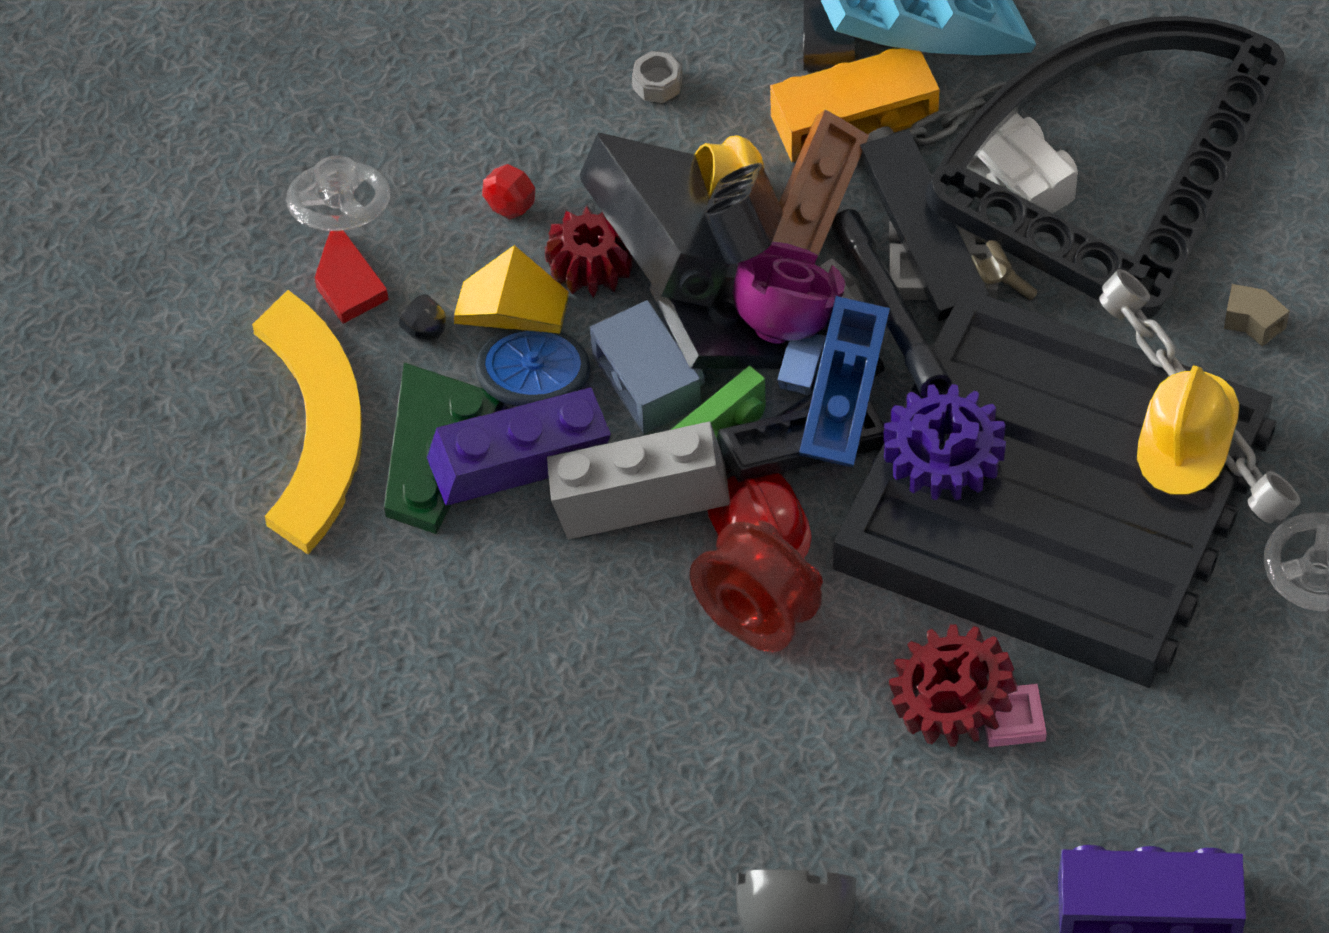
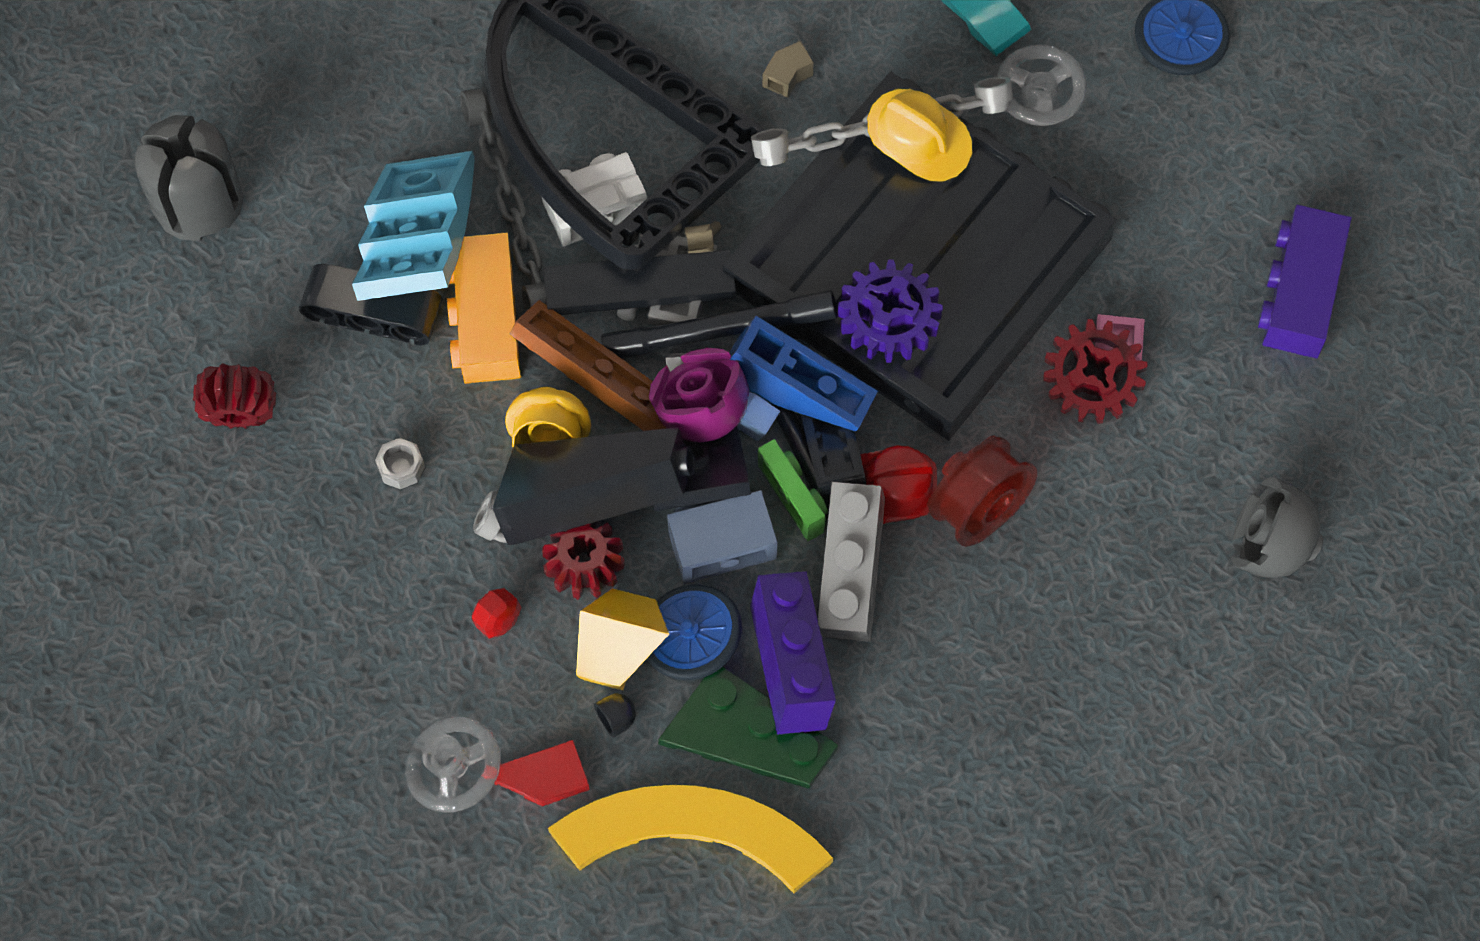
camera: 80 degrees left, 10 degrees up
(743, 213) = (630, 403): black beam -> none

